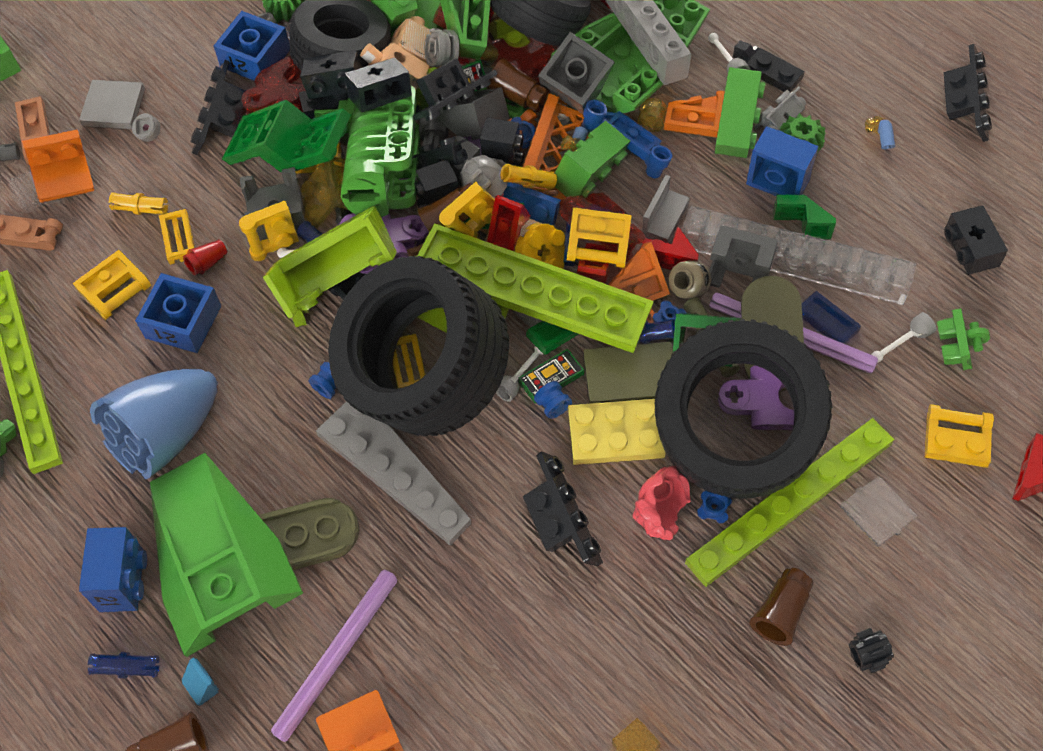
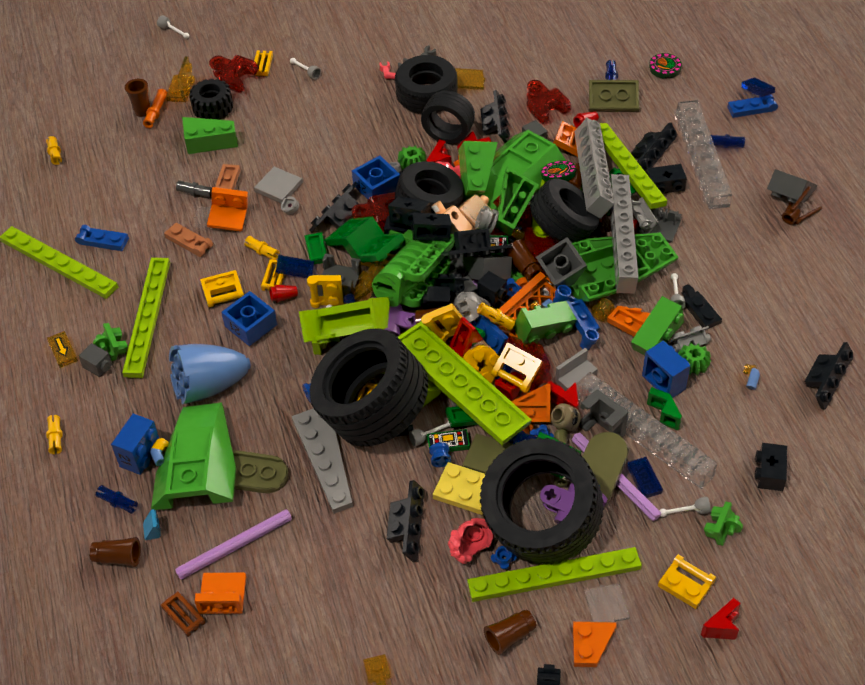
camera: 25 degrees right, 10 degrees down
(149, 566) = (156, 451): none -> arm
(201, 213) = (294, 266): none -> clear blue tile
(216, 175) = (315, 247): none -> green tile
(888, 572) = (590, 642): none -> orange wing

